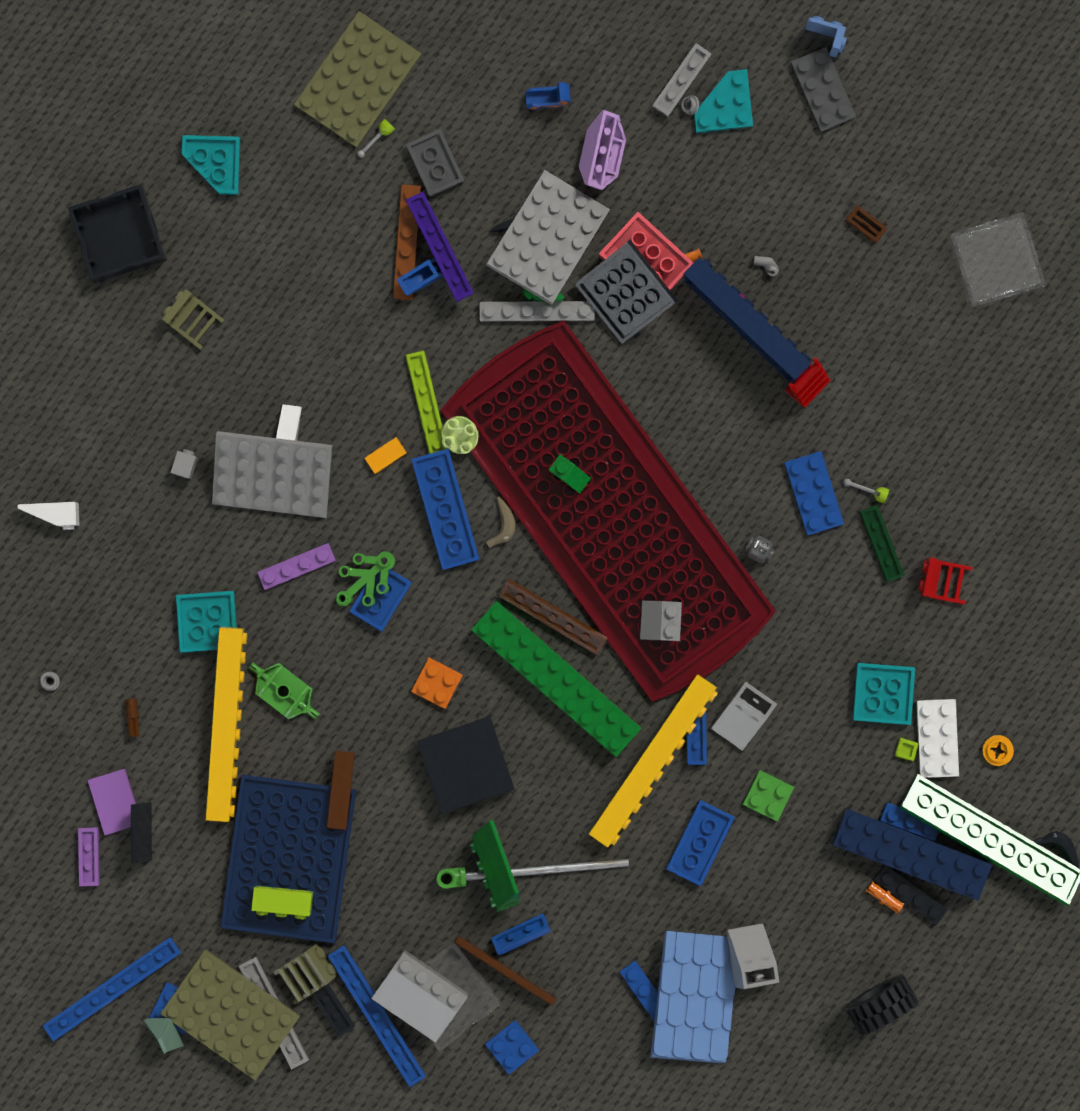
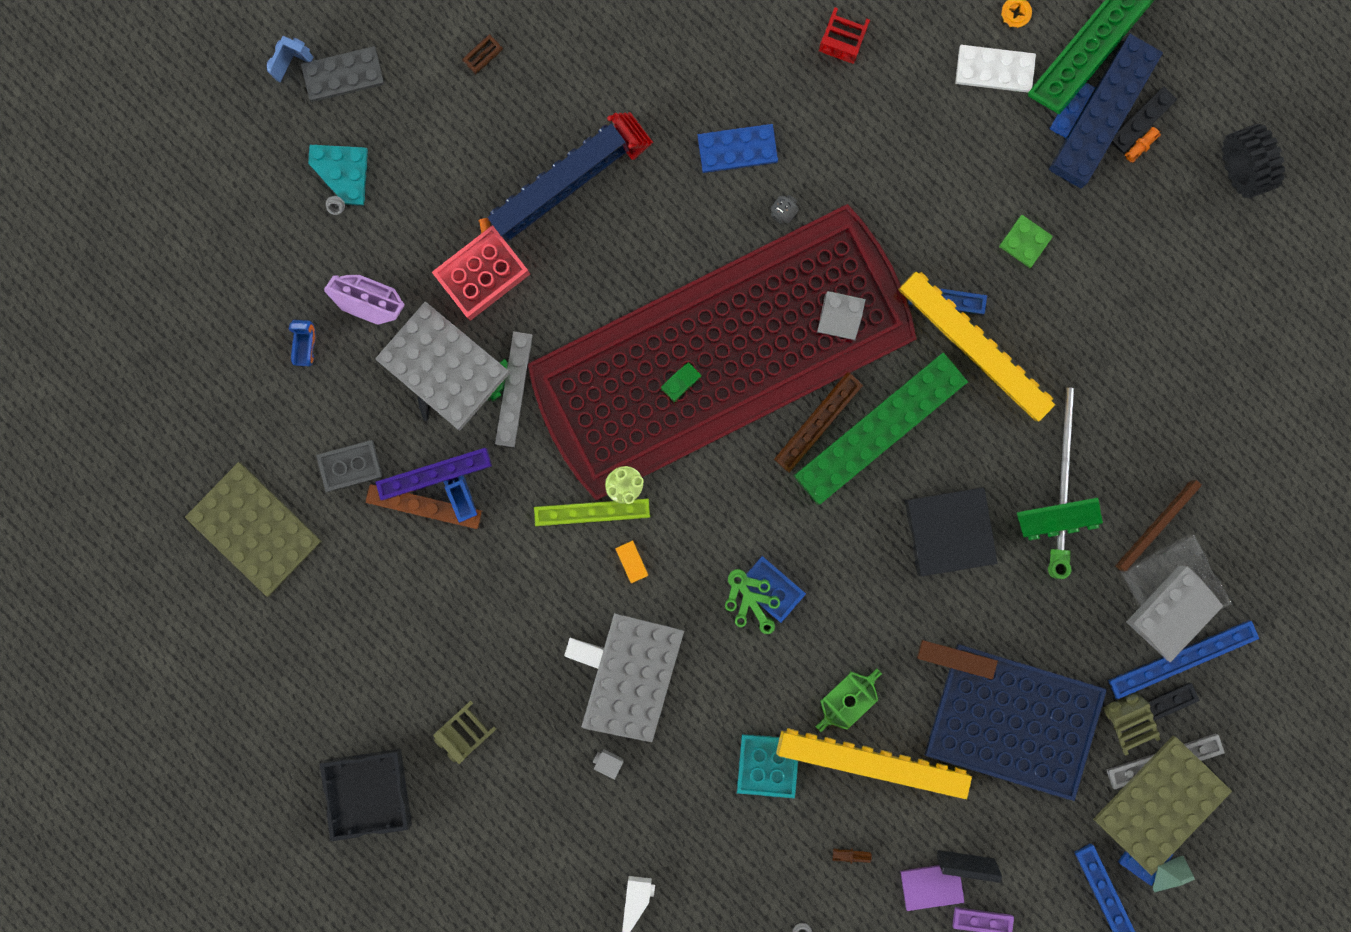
camera: 80 degrees left, 0 degrees up
(215, 159) = (308, 684): teal plate -> none
(282, 901) = (1059, 735): lime brick -> none
(296, 566) = (727, 668): medium lavender plate -> none
(385, 128) = (307, 509): hinge -> none
(437, 683) = (864, 547): orange plate -> none
(445, 509) = (695, 511): blue plate -> none
(508, 524) = (720, 452): dark tan piece -> none
(512, 1046) = (1233, 531): blue plate -> none
(520, 934) = (1125, 504): blue plate -> none
(626, 292) = (509, 296): black plate -> none
(641, 987) = (1204, 389): blue plate -> none
(681, 80) = (309, 209): light grey plate -> none
(694, 999) = (1213, 343): medium blue piece -> none
(700, 842) = (1062, 314): blue plate -> none
(744, 715) = (945, 250): light grey slope -> none
(751, 957) = (1184, 281): light grey slope -> none
(768, 264) = (505, 155): light grey arm -> none
(880, 493) = (749, 83): hinge -> none
(881, 543) = (797, 91): dark green tile -> none
(884, 693) = (944, 112): teal plate -> none
(906, 749) = (1001, 100): lime tile -> none

